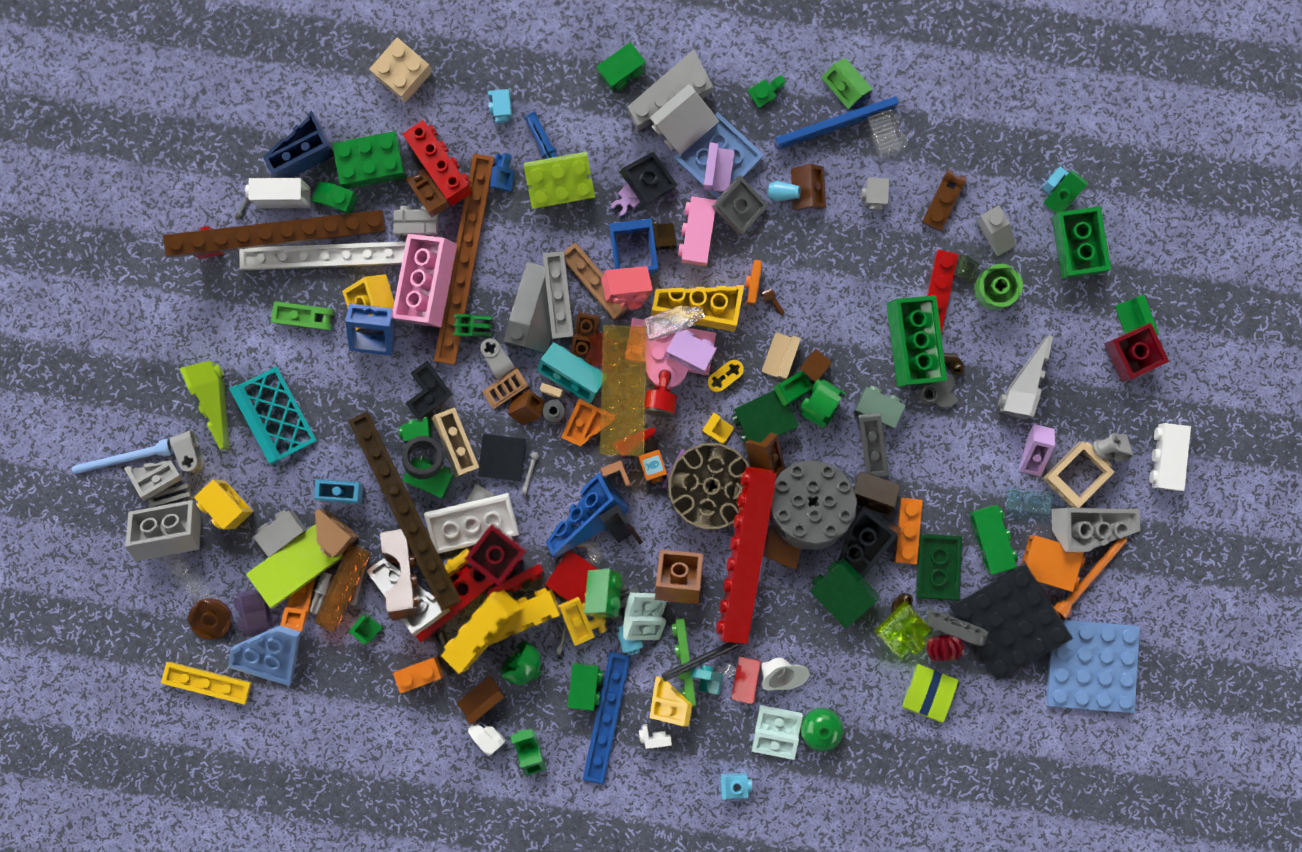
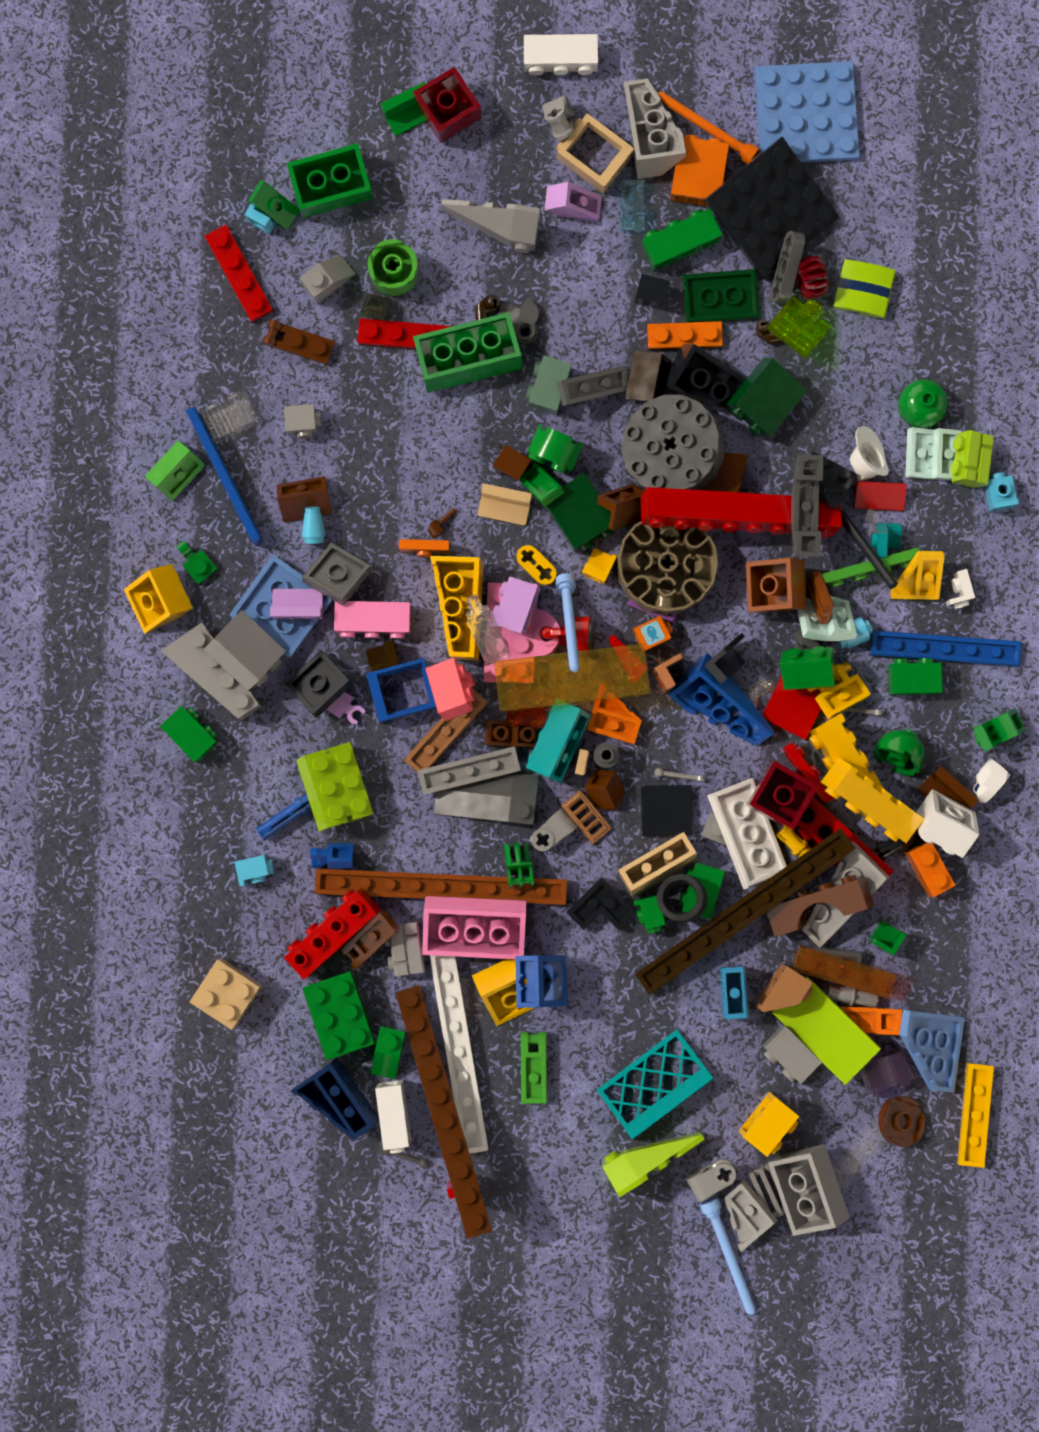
camera: 100 degrees left, 0 degrees up
(453, 694) = (947, 824): none -> white brick
(663, 613) = (820, 597): none -> dark orange tile
(704, 397) = (565, 586): none -> light blue piece
(740, 55) = (158, 598): none -> yellow slope
(742, 610) = (806, 505): none -> dark grey slope
(765, 632) = (835, 483): none -> black plate
(767, 764) = (972, 459): none -> lime brick
(951, 507) = (652, 290): none -> black panel
(1010, 157) = (238, 273): none -> red plate

